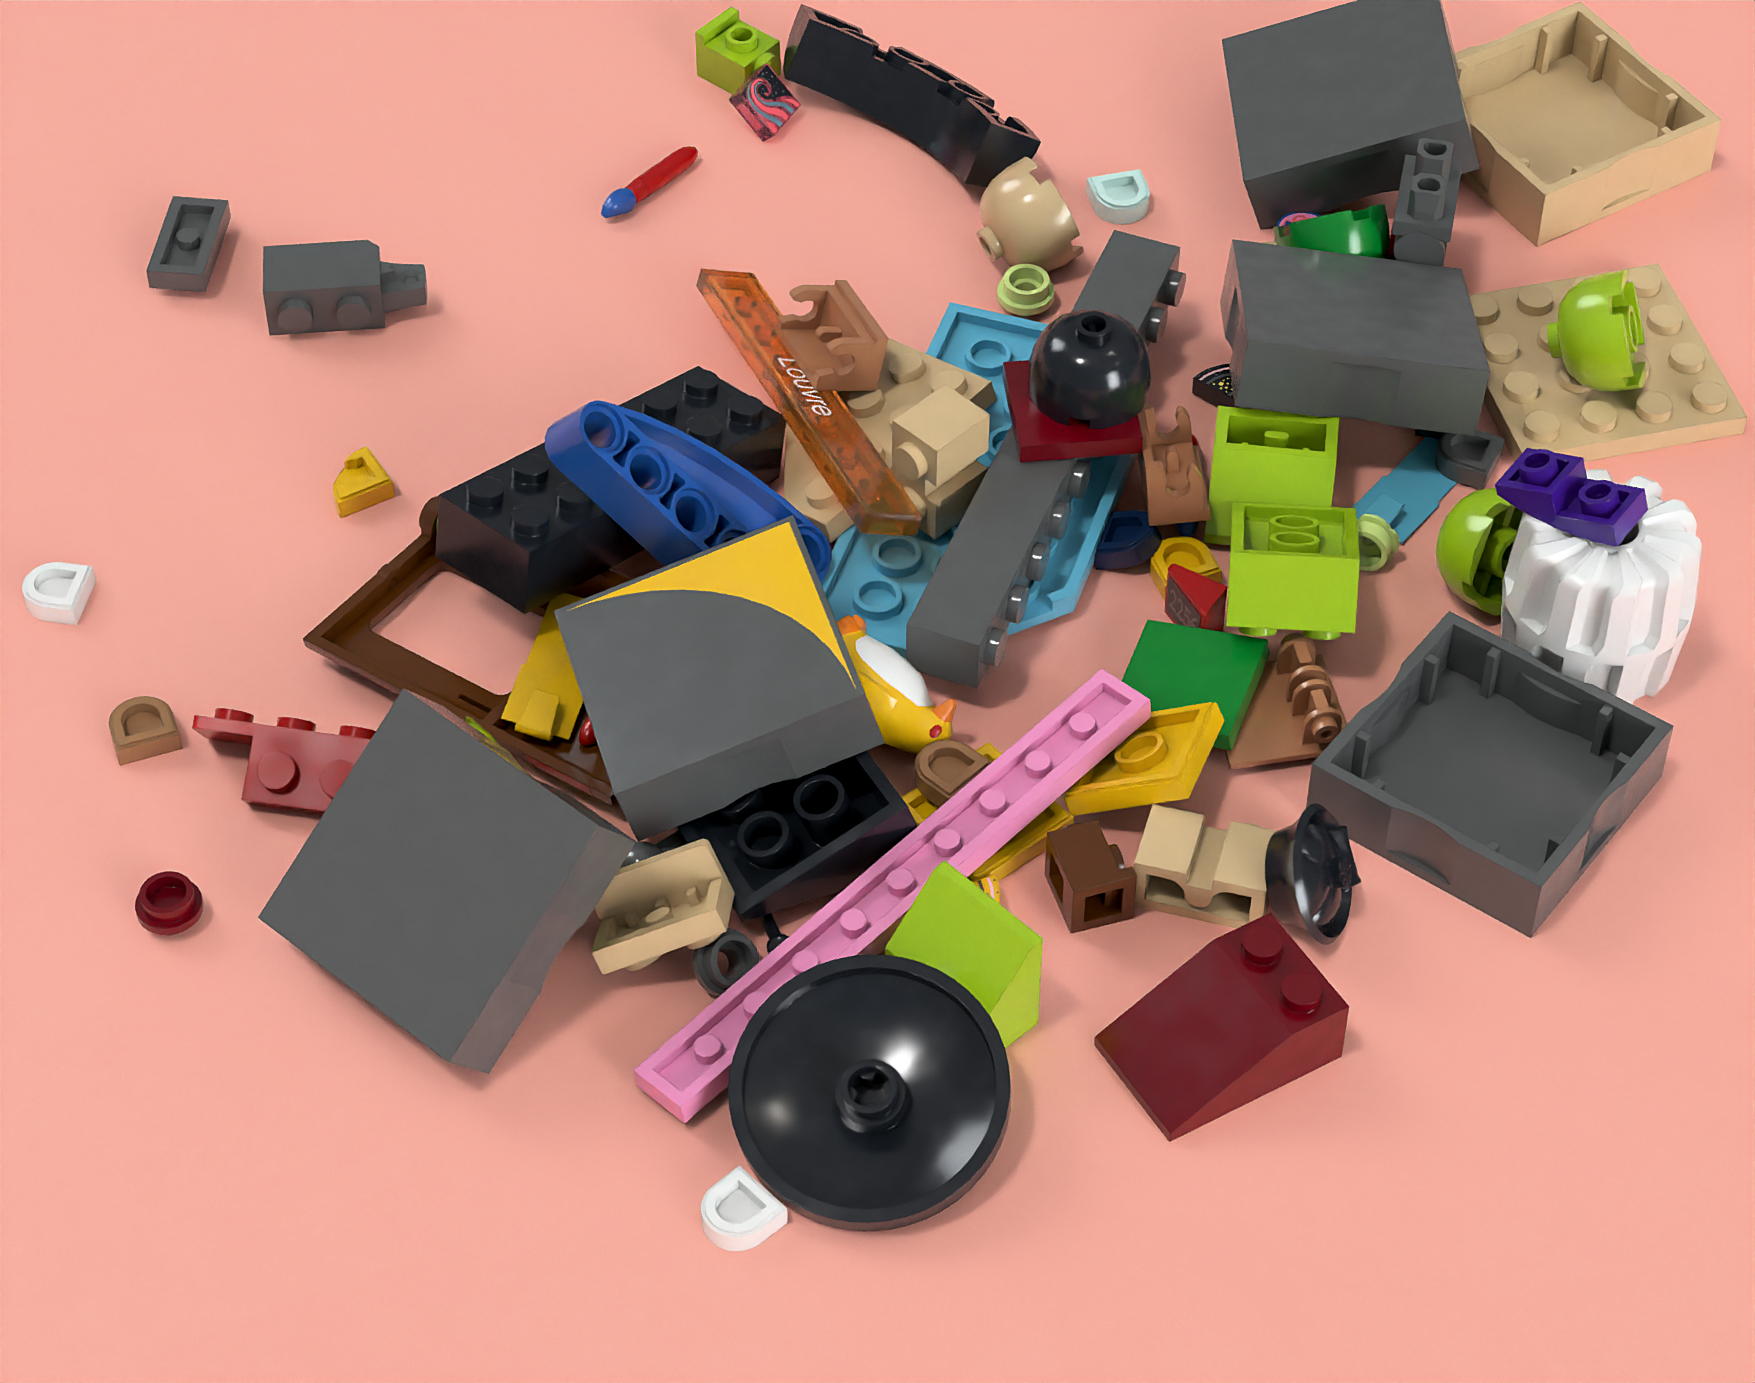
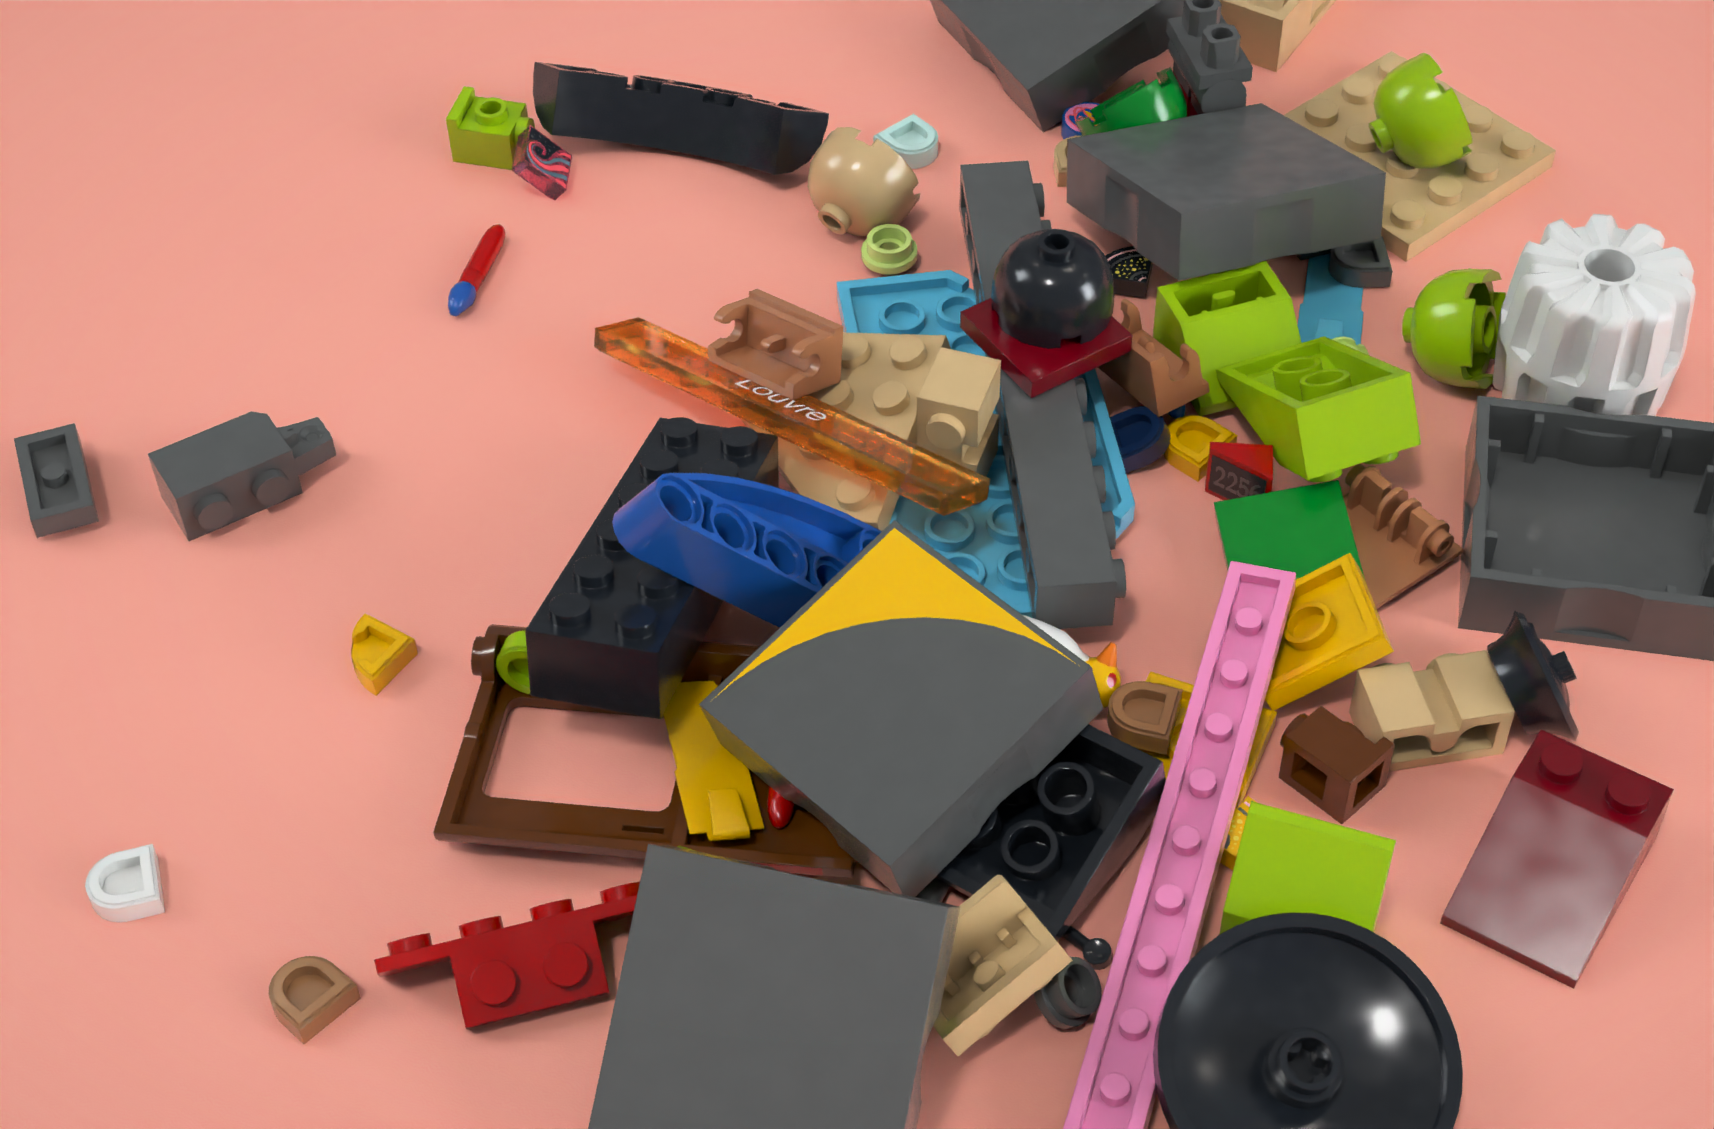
camera: 25 degrees left, 0 degrees up
(1559, 494) = (1545, 251): dark purple slope -> none

